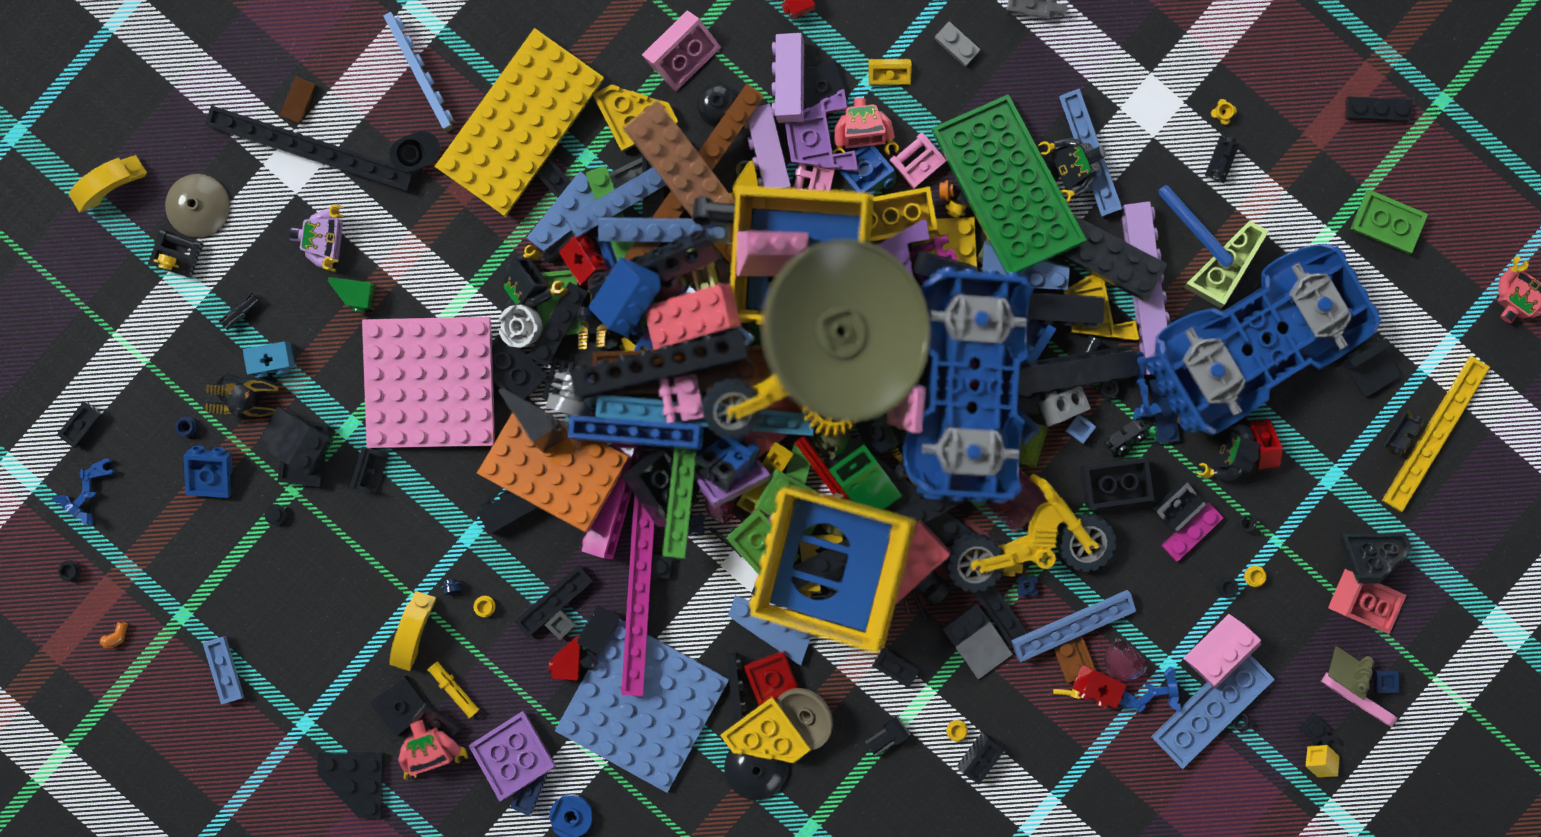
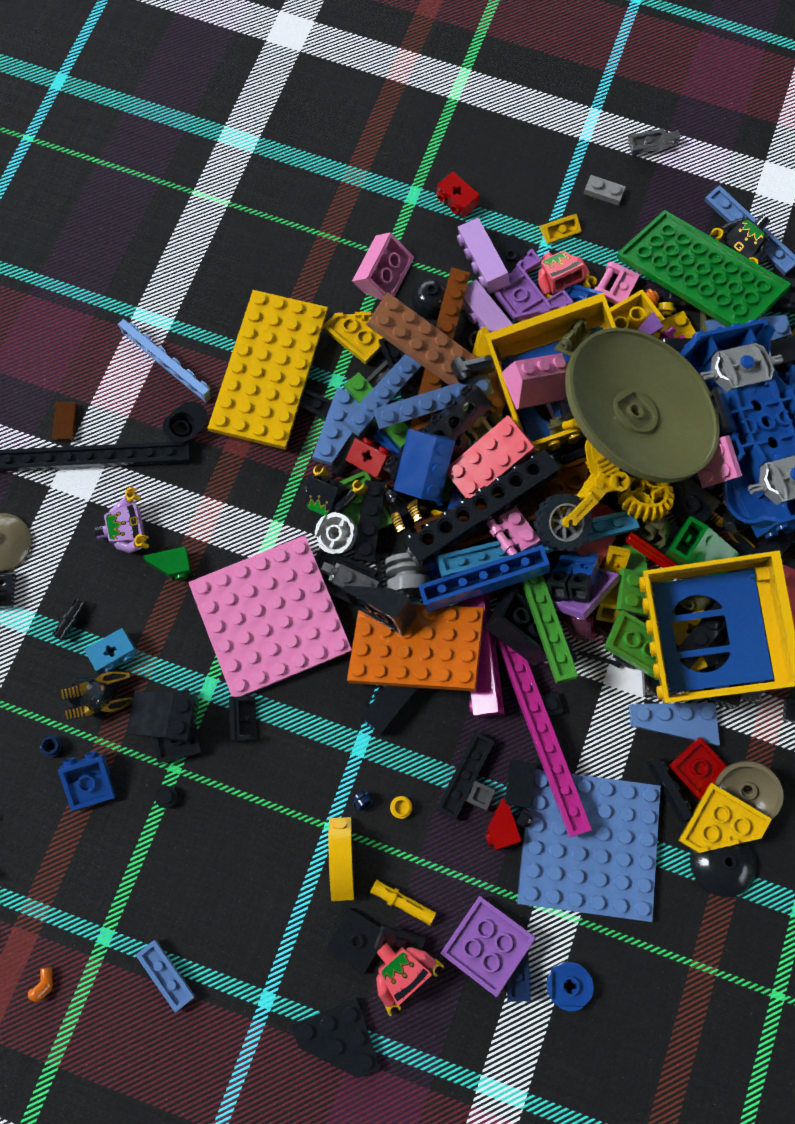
camera: 20 degrees left, 15 degrees down
(517, 377) = (345, 576): none -> flat silver hinge
(827, 221) = (573, 337): none -> olive hinge
(932, 361) = (722, 408): none -> black slope

